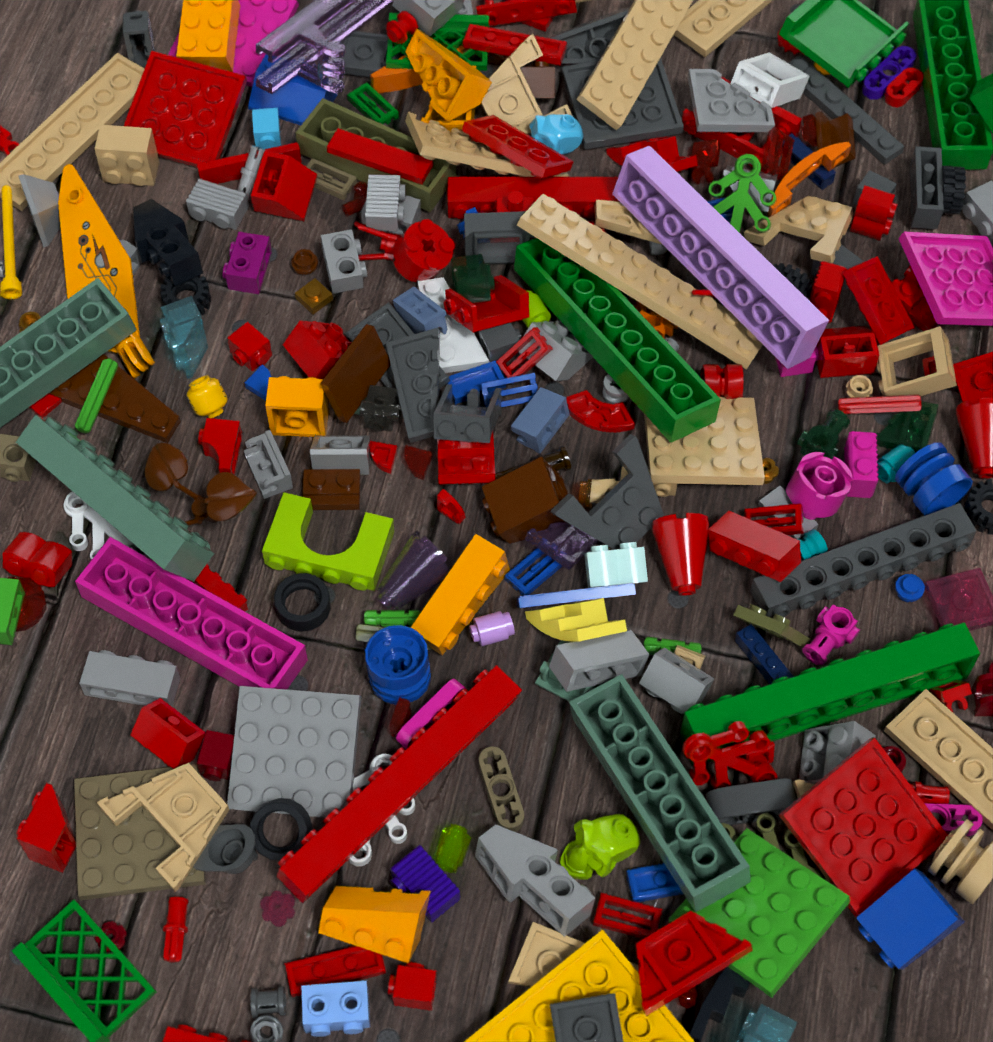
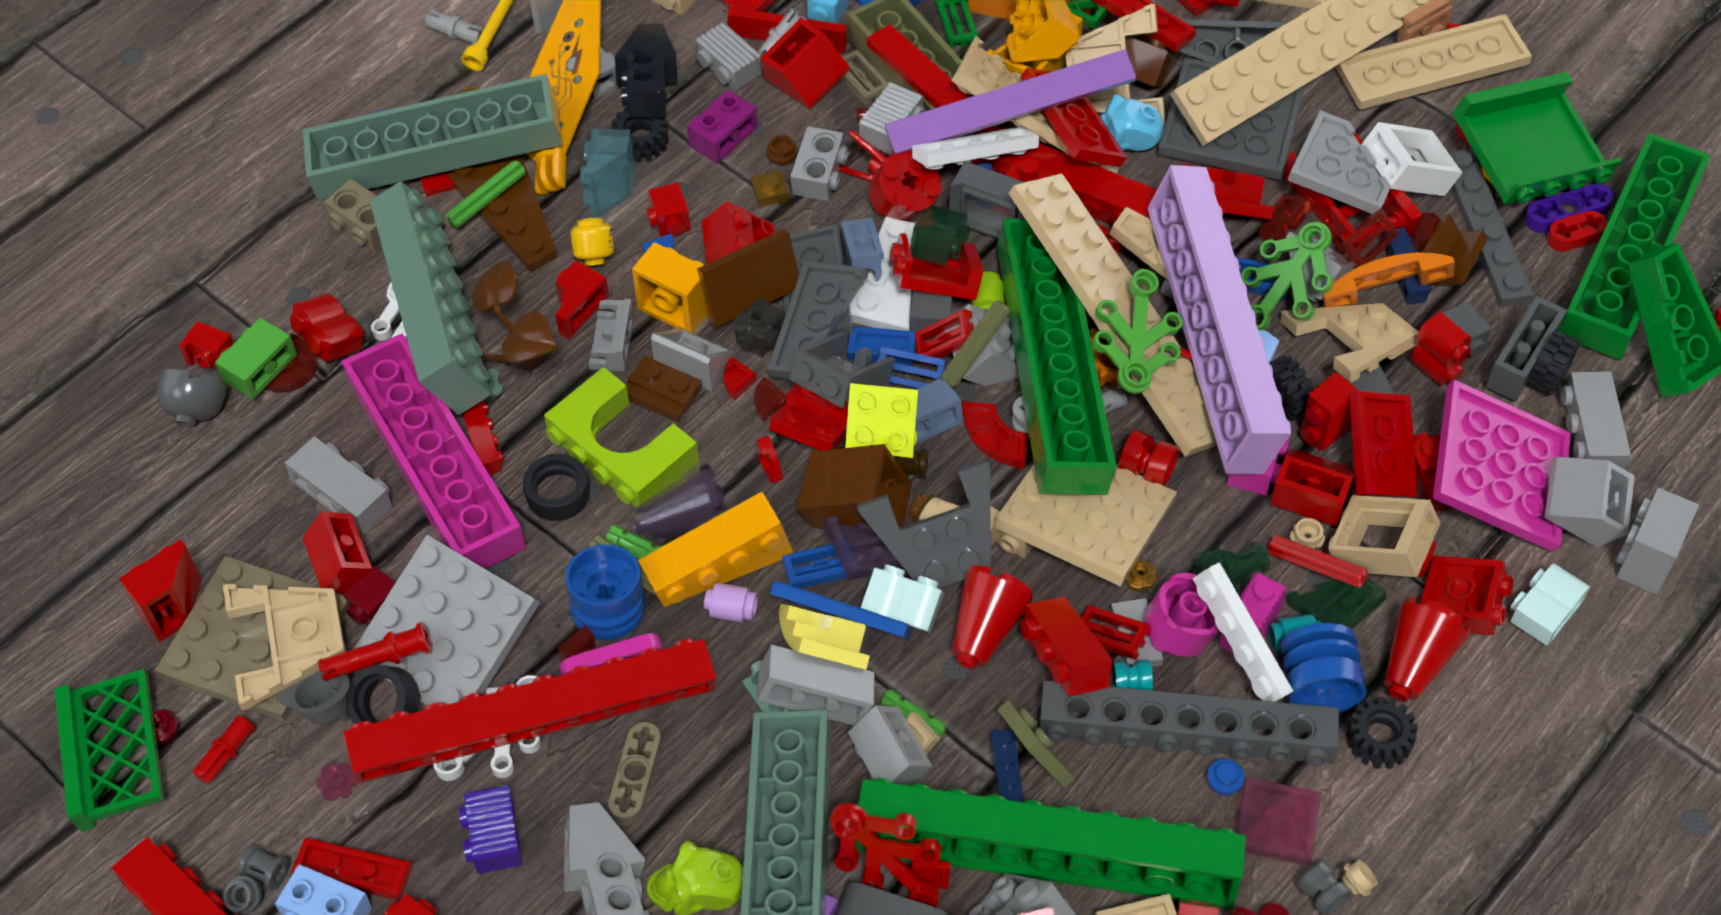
camera: 30 degrees right, 5 degrees down
(269, 786) = (392, 648): none -> red pin
(376, 920) = (415, 839): light orange wedge -> none
(451, 848) = (543, 806): clear neon green brick -> none
(463, 199) = (966, 148): none -> white plate
(472, 154) = (1011, 101): none -> medium lavender tile
(524, 438) = (882, 417): none -> neon yellow hinge
(556, 350) = (975, 343): none -> olive axle
(670, 294) = (1137, 337): none -> bright green plant
(829, 636) = (1095, 784): dark pink connector -> none
(872, 480) = (1242, 634): none -> white plate

